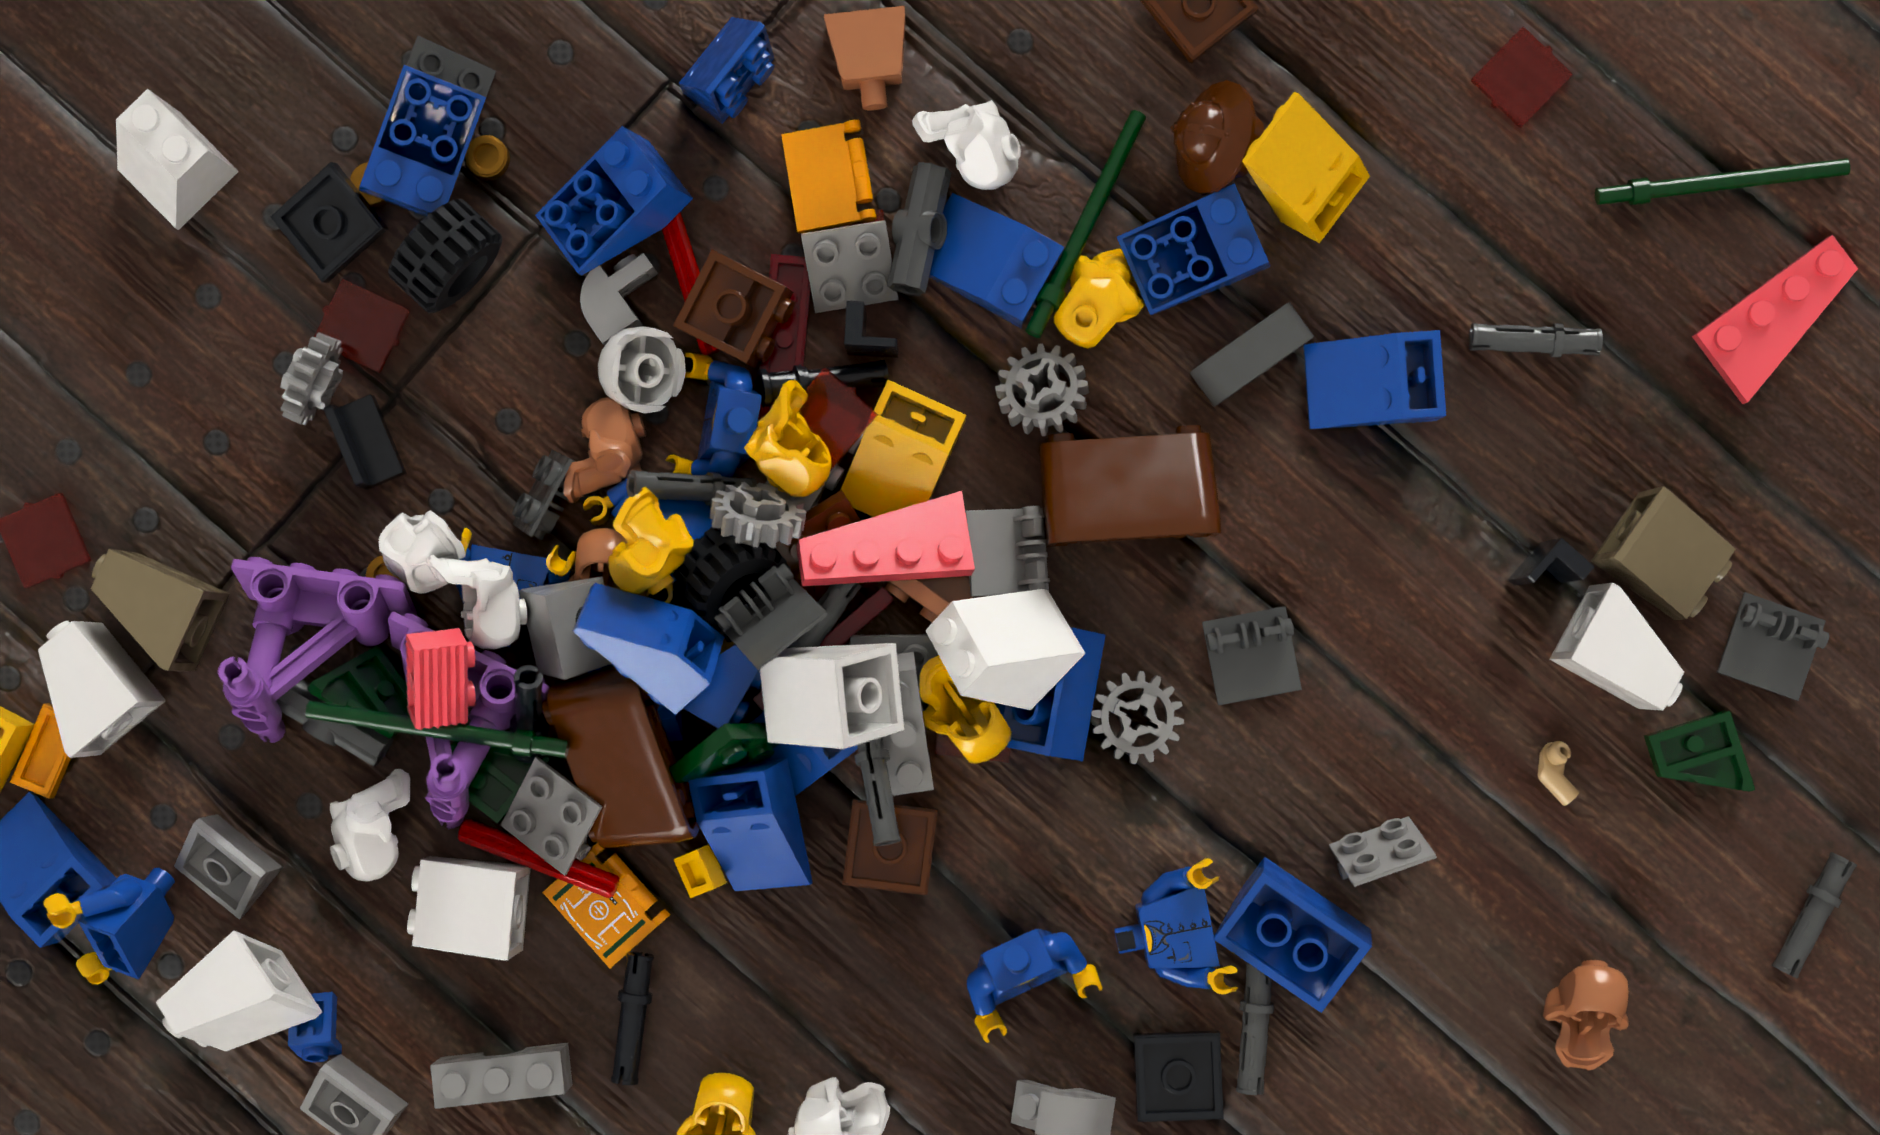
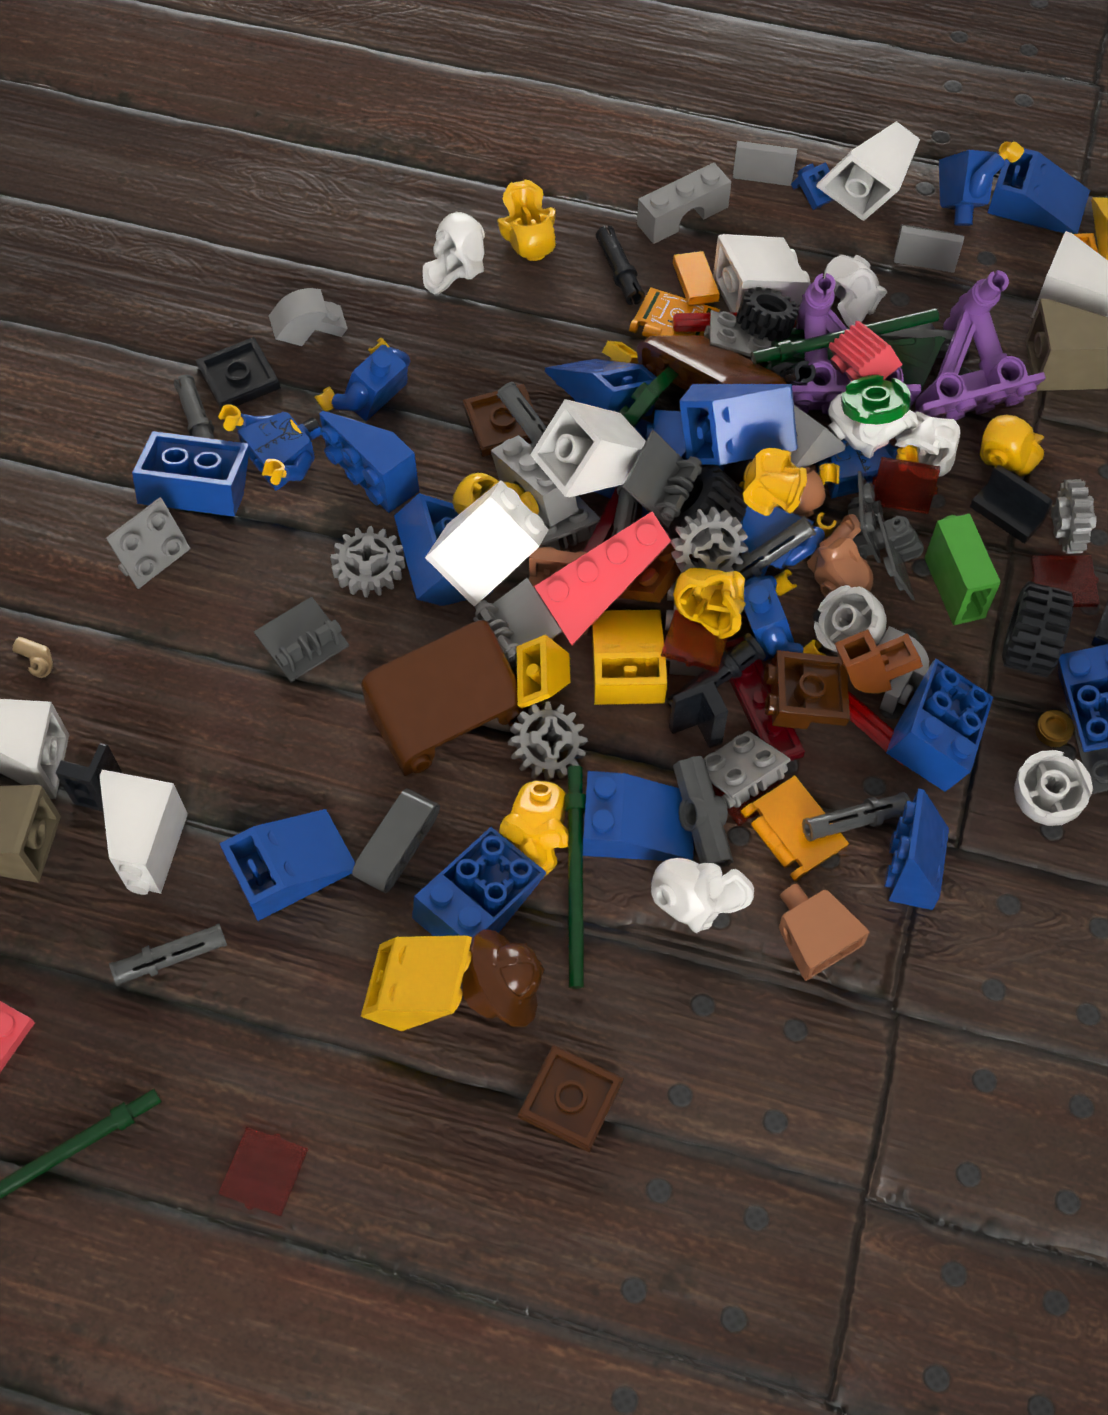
camera: 150 degrees right, 25 degrees down
(317, 513) = (1011, 444): none -> yellow head
(469, 594) = (875, 400): none -> green tile
(474, 517) = (906, 484): none -> clear red piece
(479, 375) = (961, 569): none -> bright green brick
(483, 829) = (767, 314): none -> black tyre
(536, 443) = (901, 546): none -> dark grey hinge
(544, 73) = (1052, 788): none -> white cylinder
(547, 952) = (696, 278): none -> light orange tile
(652, 291) = (872, 665): none -> dark orange brick
(744, 151) = (820, 825): none -> dark grey pin
(1014, 464) = (541, 670): none -> yellow slope
(1071, 835) = (371, 459): none -> blue slope
(1521, 481) = (141, 828): none -> white slope

